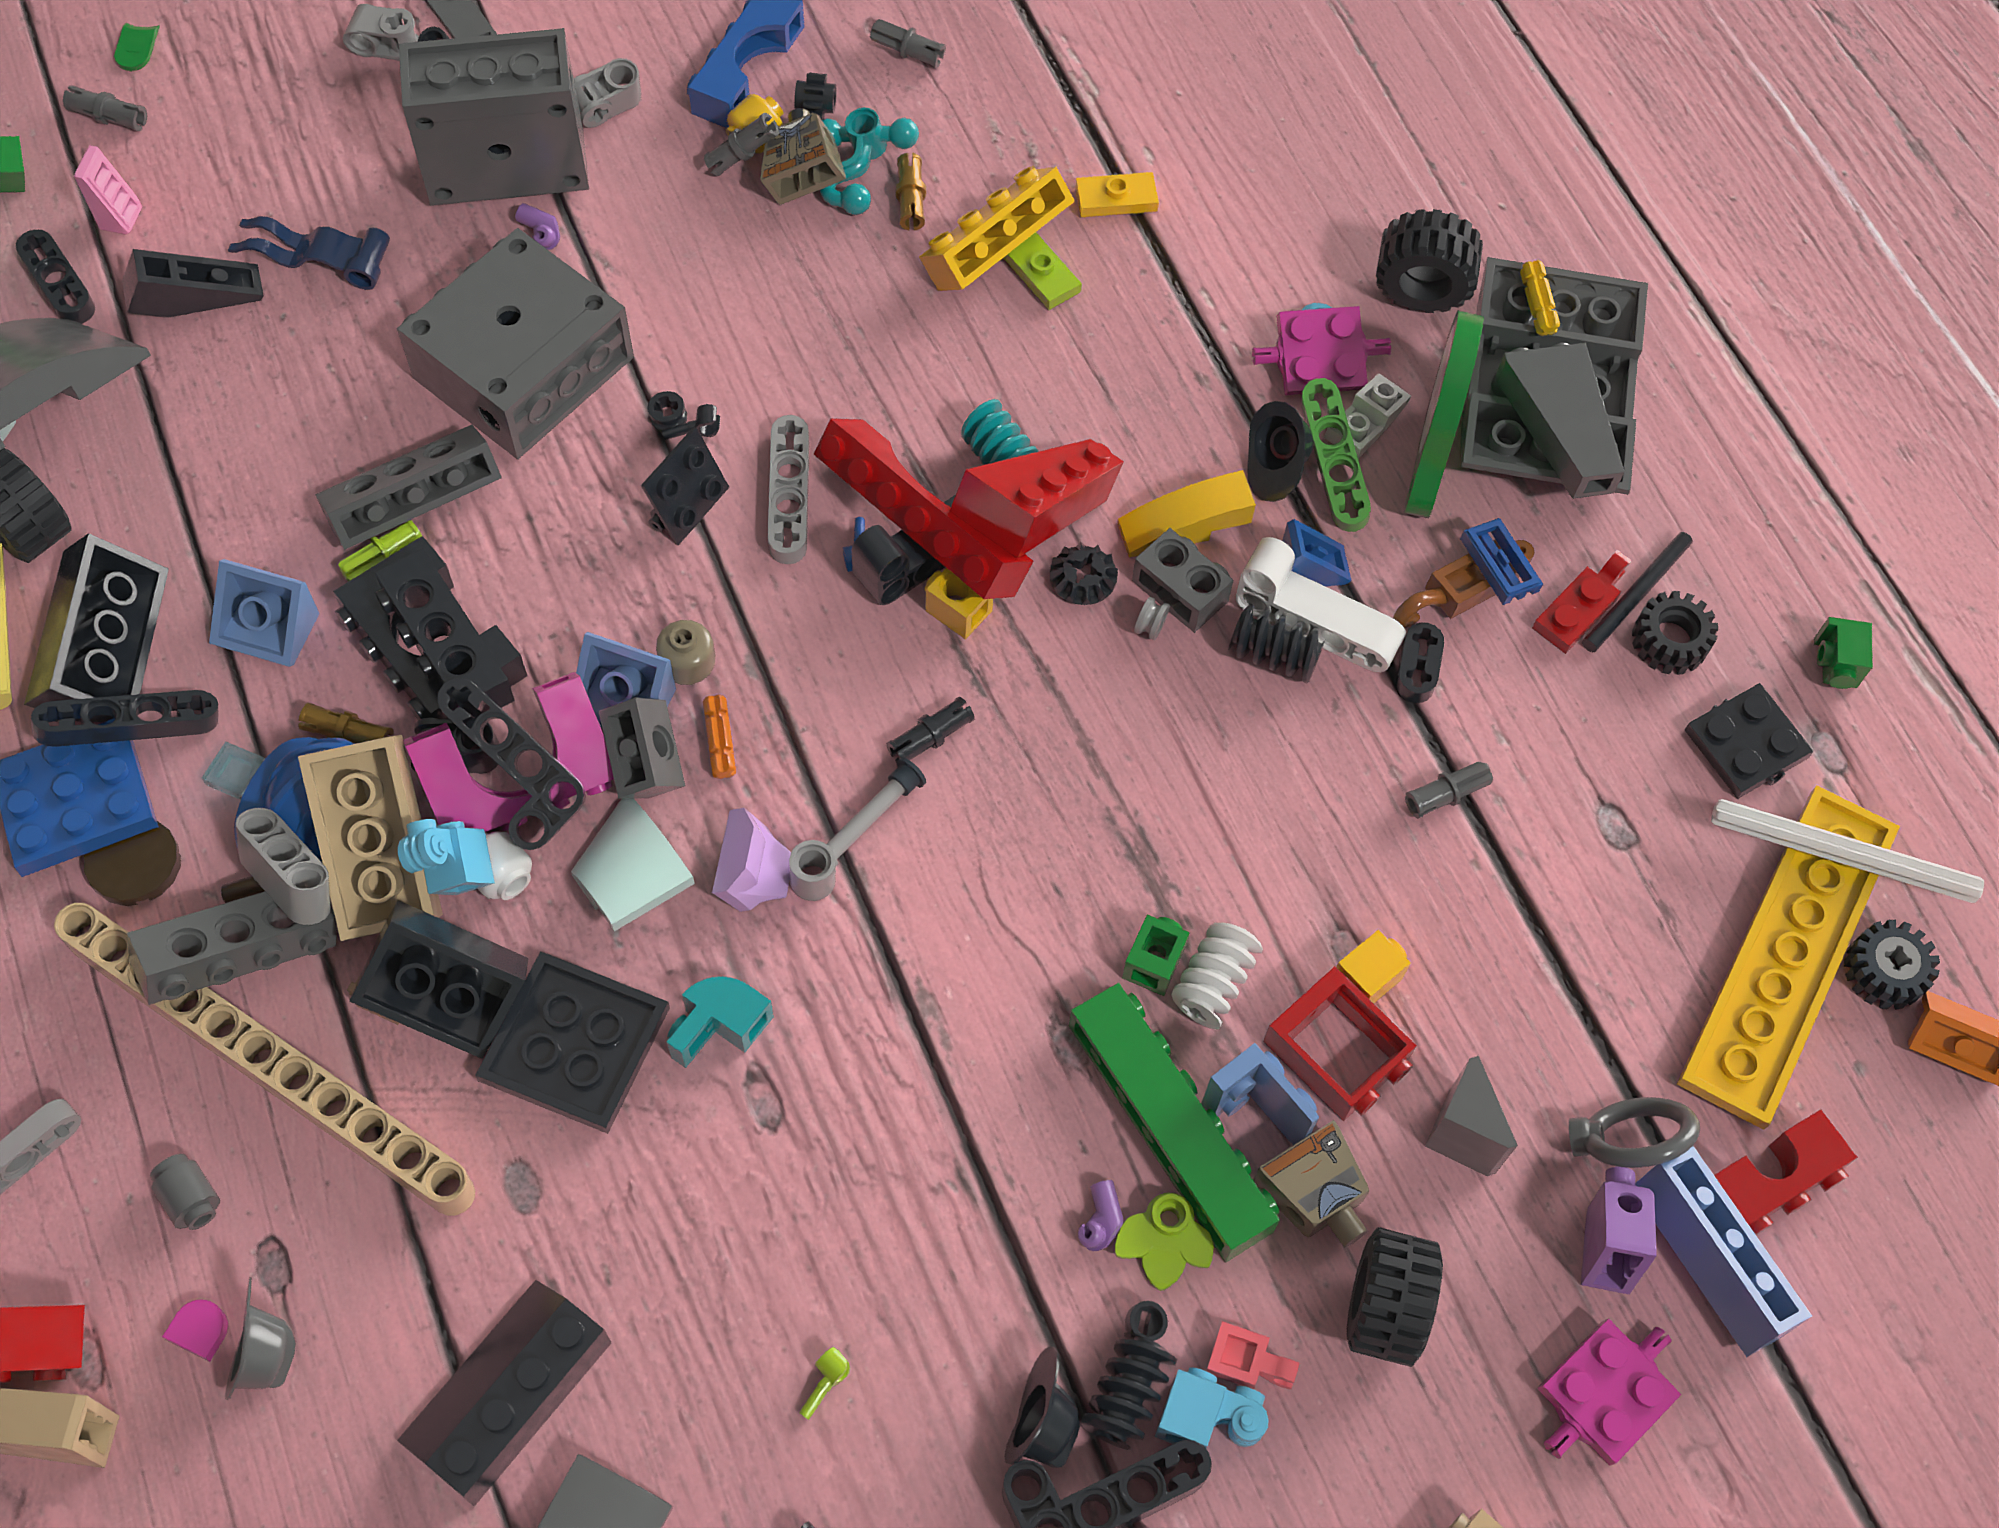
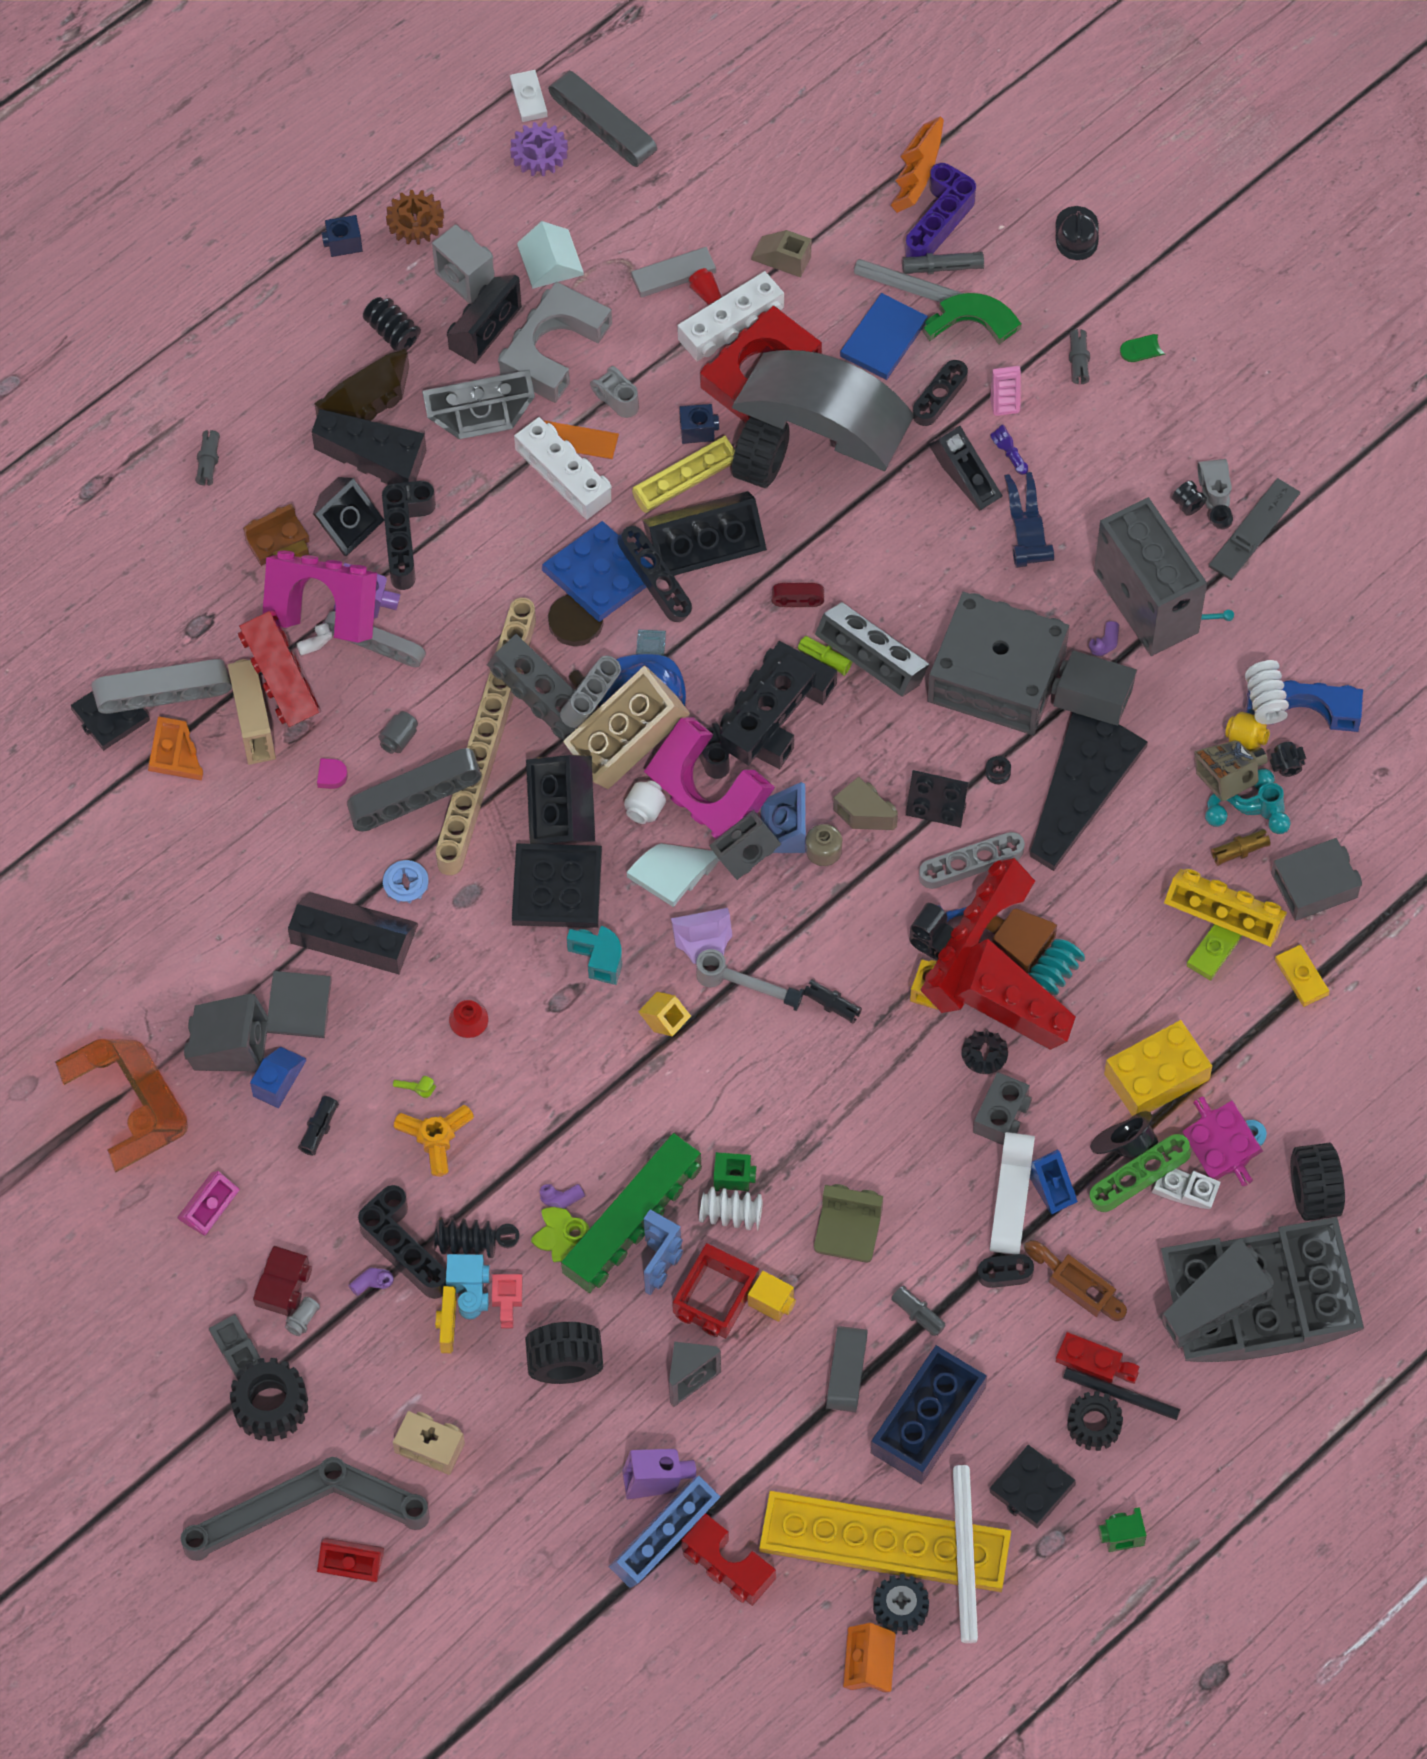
camera: 75 degrees right, 0 degrees up
(178, 232) = (1005, 442): none -> dark purple piece
(261, 613) = (751, 612): medium blue slope -> none
(262, 1351) = (330, 804): dark grey piece -> none
(270, 543) = (797, 595): none -> dark red beam
(307, 1198) = (414, 789): none -> dark grey beam
(340, 725) = (700, 688): pearl gold pin -> none
(385, 65) = (1189, 498): none -> black wheel
(442, 1256) = (414, 872): none -> light blue gear
(450, 854) = (627, 772): medium azure brick -> none
(507, 755) = (698, 773): black beam -> none
(604, 94) = (1225, 629): light grey piece -> none
(616, 247) = (1093, 687): none -> dark grey brick
(649, 583) = (864, 808): none -> dark tan slope
(706, 422) = (1000, 794): black hand -> none
(719, 737) = (780, 887): orange axle -> none
(724, 67) = (1267, 692): none -> white piece
(729, 320) = (1086, 774): none -> black wing
(734, 1267) = (468, 1019): none -> red cone
(741, 144) = (1219, 729): dark grey pin -> none
(865, 957) = (664, 1013): none -> yellow brick
(907, 42) = (1369, 800): dark grey axle -> none
(939, 458) = (1022, 937): none -> dark orange torso
(952, 1381) = (440, 1143): none -> light orange bush
(994, 128) = (1316, 878): none -> dark grey brick
(1046, 1417) = (431, 1203): black piece -> none
(1152, 618) = (966, 1100): light grey bush -> none
(1190, 512) = (1054, 1098): yellow slope -> none
(1195, 383) = (1158, 1069): none -> yellow brick
(1262, 1470) = (446, 1319): none -> yellow plate
(1277, 643) = (976, 1178): black piece -> none
(1290, 829) = (848, 1223): none -> olive bracket
(1318, 1185) = (624, 1303): dark tan torso -> none
(1444, 412) = (1188, 1217): green piece -> none
(1494, 561) = (1078, 1310): blue tile -> none
(1514, 909) = (847, 1369): none -> dark grey beam
(1540, 298) = (1312, 1256): yellow axle -> none
(1589, 1139) = (712, 1446): dark grey piece -> none
(1608, 1392) = (561, 1497): dark pink plate -> none
(1623, 825) = (928, 1414): none -> dark blue brick

